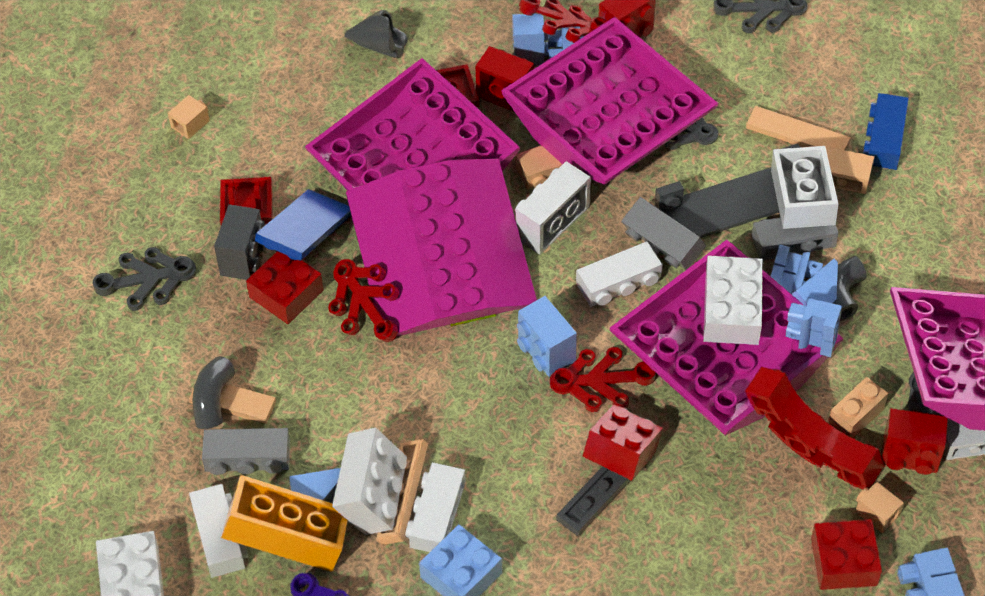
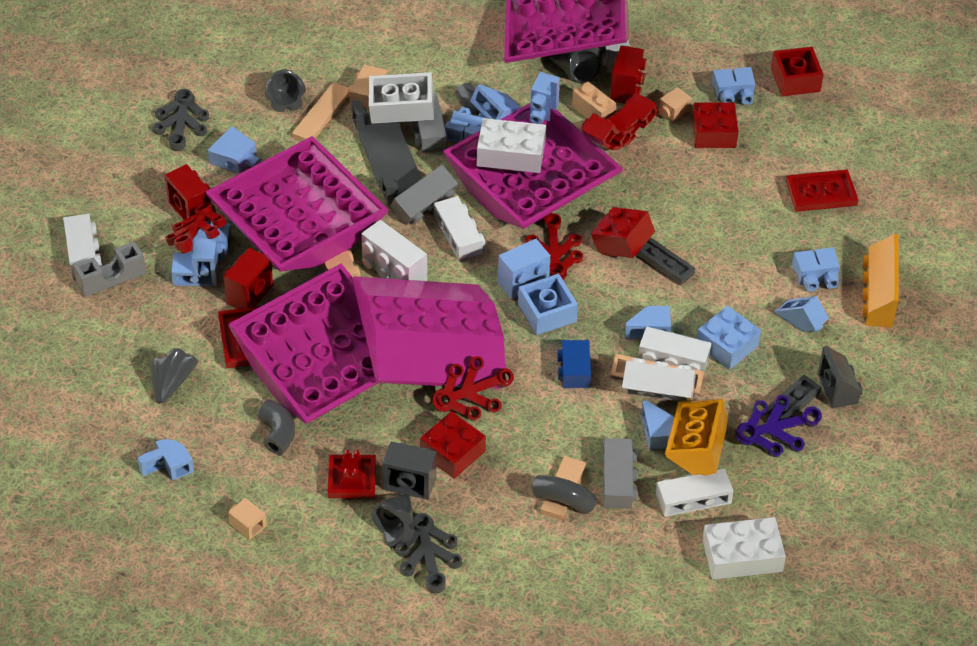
camera: 90 degrees left, 5 degrees down
(185, 237) = (395, 519): none -> dark grey hat
(267, 48) = (168, 455): none -> light blue brick
(301, 134) = (282, 426): none -> dark grey cylinder
(303, 225) = (395, 423): tile -> none
(410, 402) = (575, 364): none -> blue brick
(482, 482) = (651, 316): none -> light blue slope
(498, 366) = (547, 304): none -> light blue brick
(713, 55) = (233, 151): none -> light blue torso
(821, 86) = (285, 90): none -> dark grey hat
(886, 130) = (331, 58): blue brick -> none

